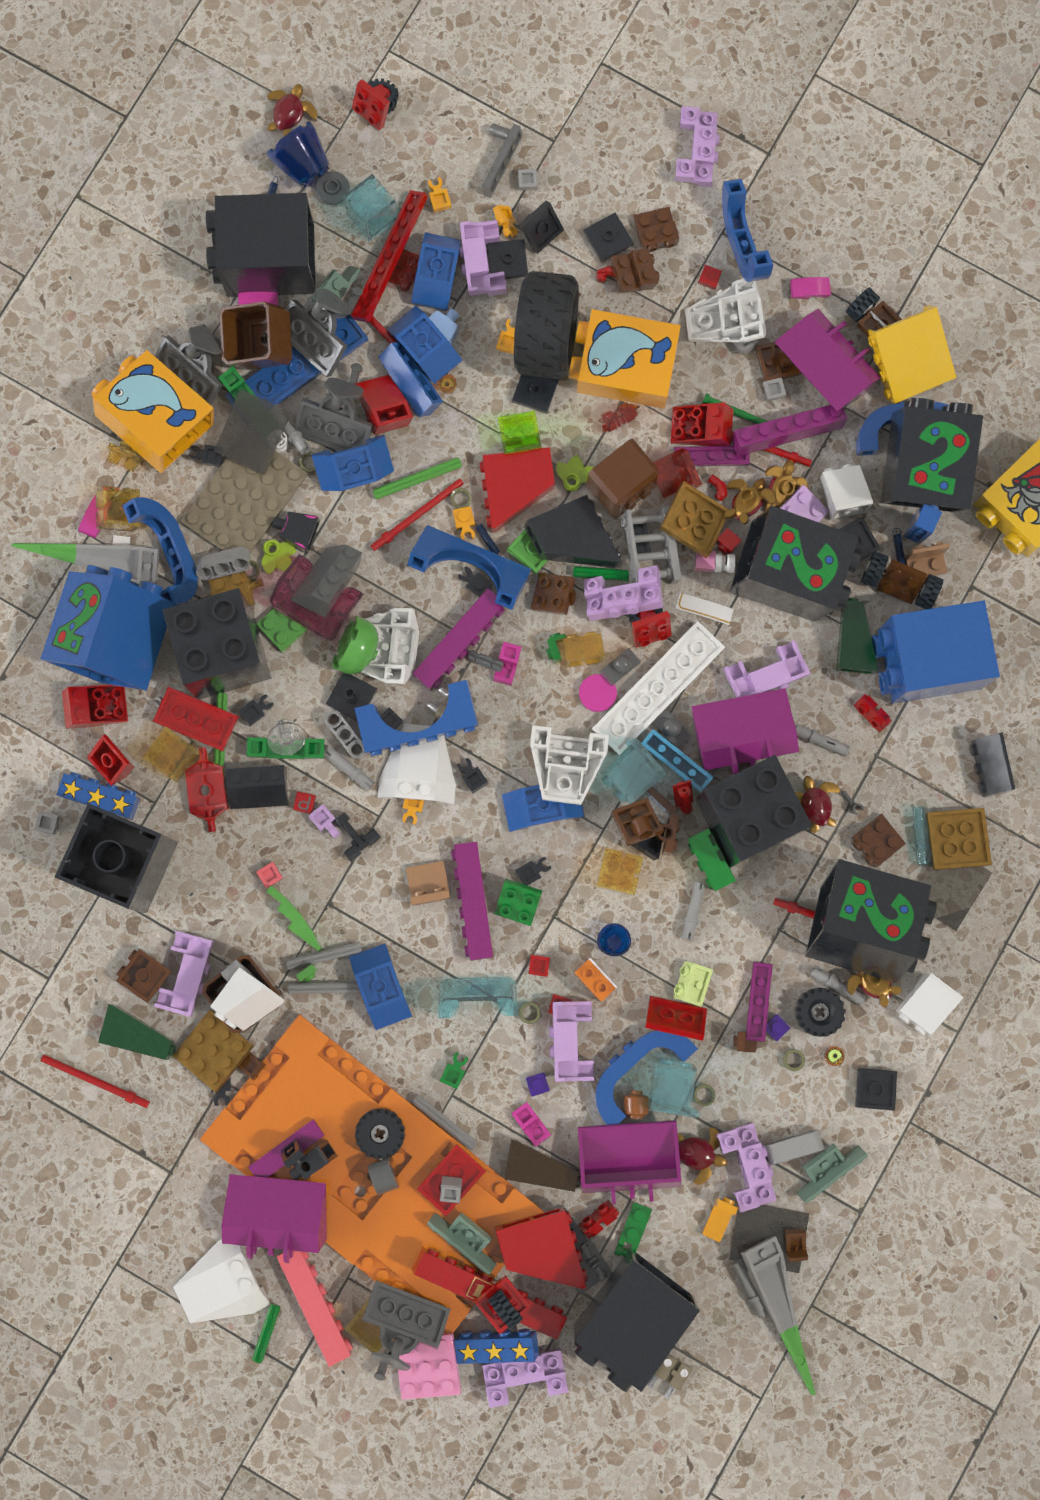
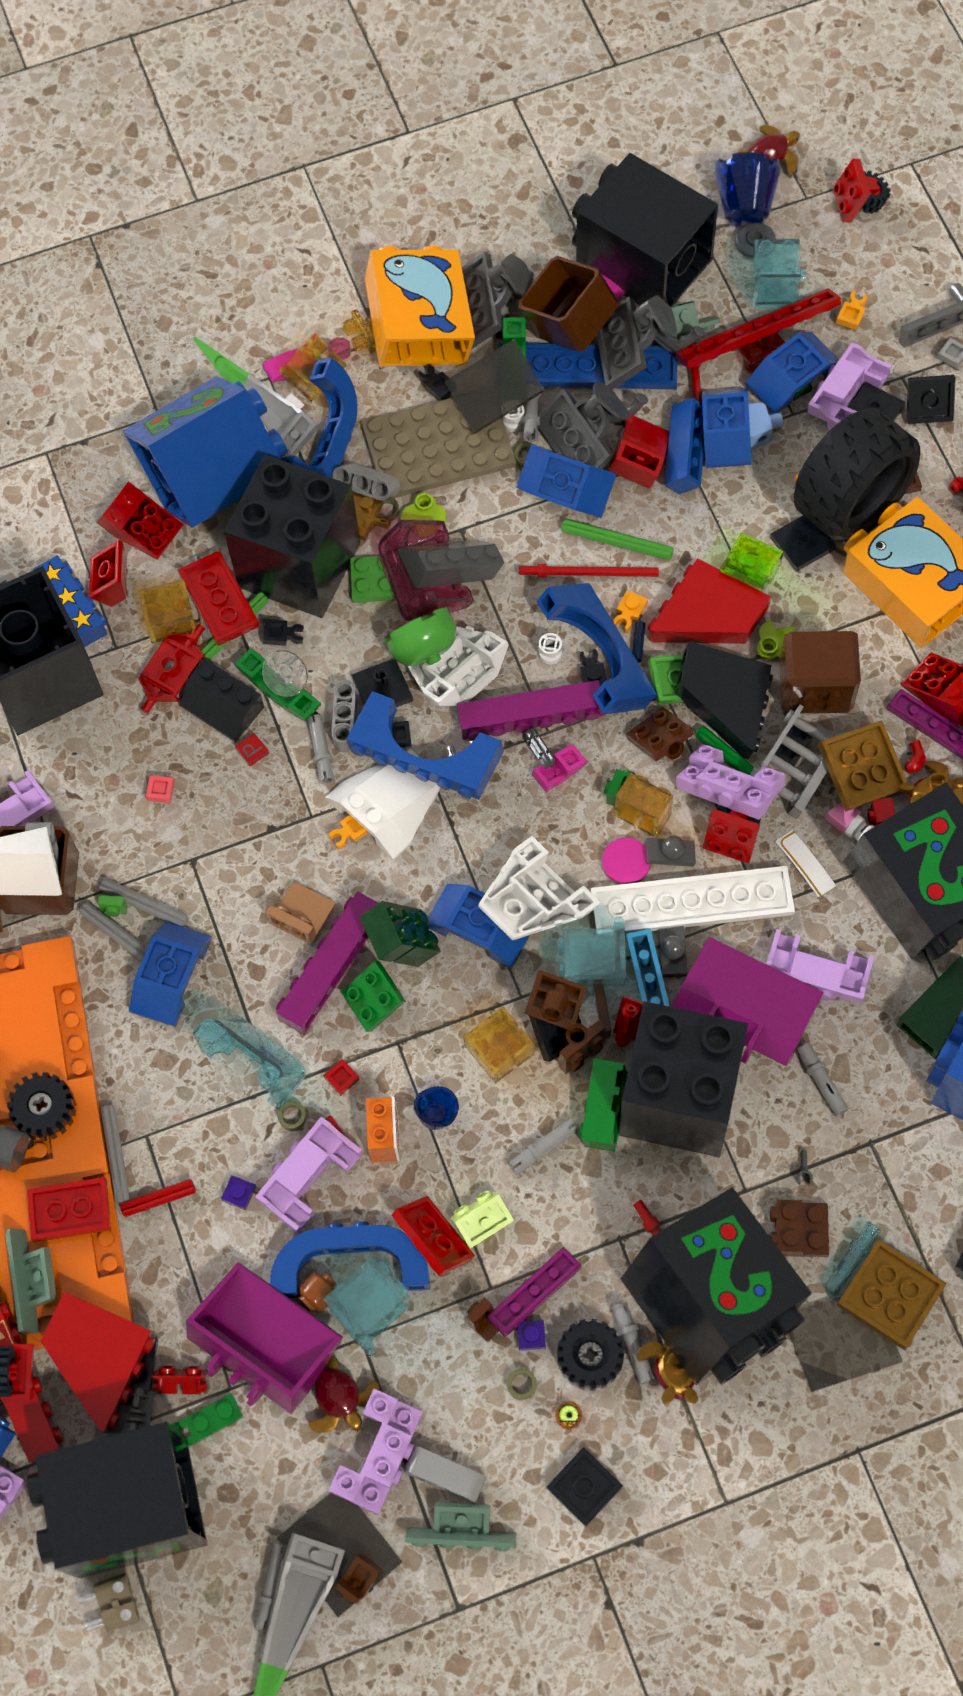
camera: 45 degrees right, 15 degrees down
(119, 478) = (341, 347): none -> clear pink tile
(297, 529) = (463, 503): black torso -> none
(298, 924) = (147, 851): bright green slope -> none
(323, 819) = (254, 777): lavender plate -> none
(360, 841) = (271, 822): black bar -> none
(437, 588) = (550, 648): none -> white wheel
(447, 384) = (720, 478): clear orange tile -> none
(451, 1189) = (58, 1216): light grey slope -> none
(453, 1073) = (165, 1113): green plate -> none
(460, 490) = (645, 578): olive piece -> none
(473, 777) = (432, 846): black plate -> none
(492, 1127) = (157, 1198): none -> red axle
(506, 219) = (901, 369): light orange plate -> none
(506, 853) = (400, 934): none -> dark green piece
(530, 873) = (410, 979): black plate -> none
(531, 1124) = (197, 1227): dark pink slope -> none
(537, 1168) = (163, 1272): dark brown slope -> none
(625, 409) = (857, 612): clear red hinge -> none
(674, 470) = (877, 704): clear red bracket -> none
(712, 1097) = (388, 1334): olive piece -> none
(719, 1218) = (303, 1483): light orange bracket -> none
(817, 803) = (763, 1136): dark red animal -> none
(877, 719) = (899, 1082): red hinge -> none
(928, 1004) = (715, 1440): white slope -> none

